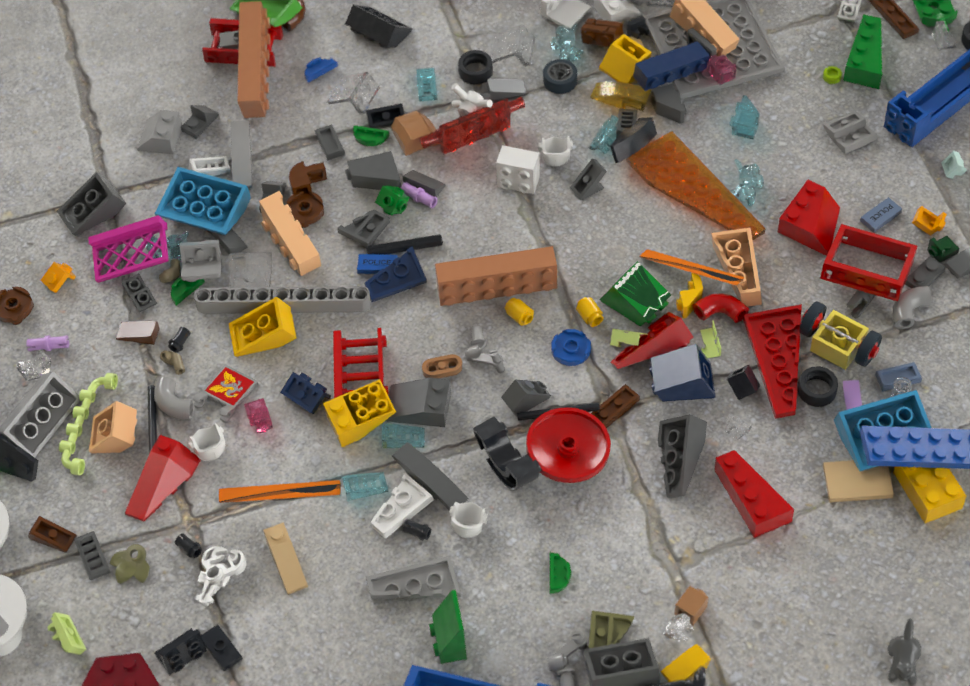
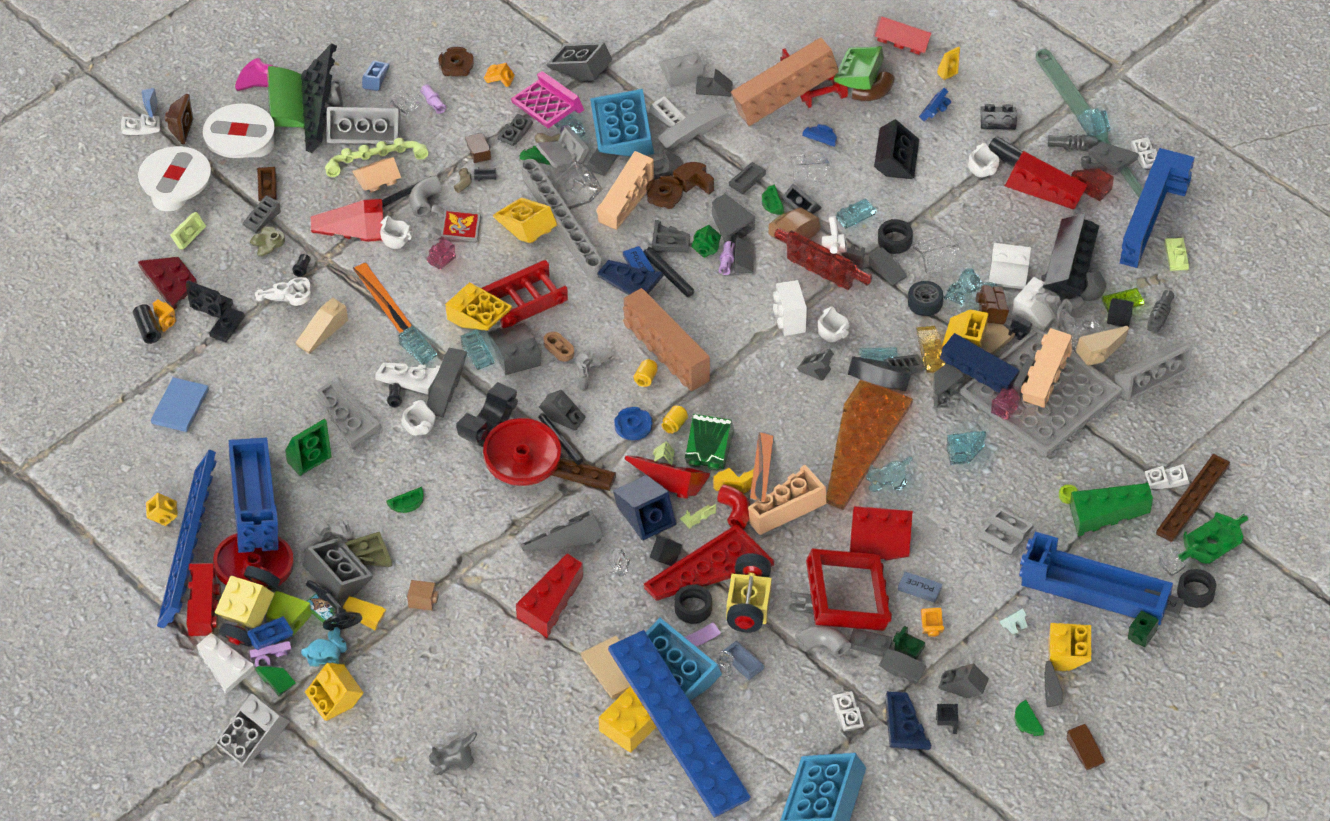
camera: 60 degrees right, 5 degrees down
(303, 392) = (482, 270): dark blue bracket -> none

